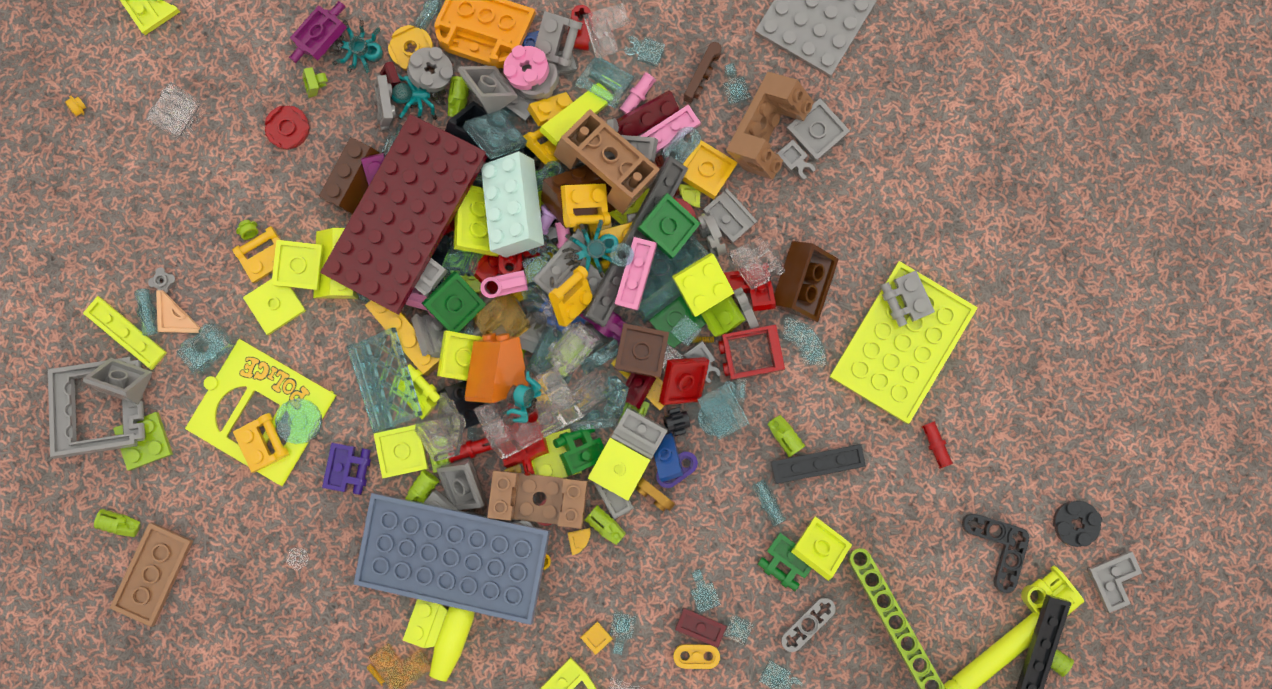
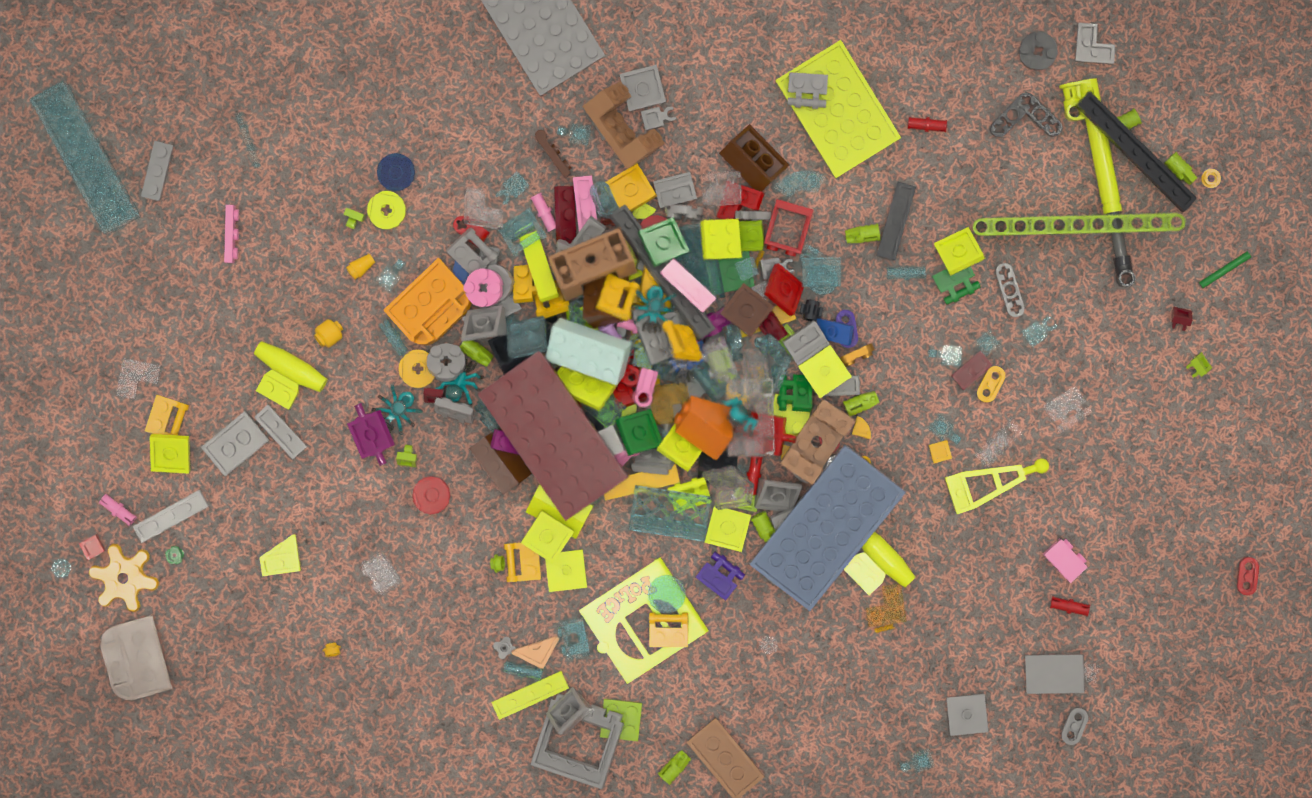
camera: 75 degrees left, 5 degrees up
(629, 254) = (674, 284): clear light blue plate -> none

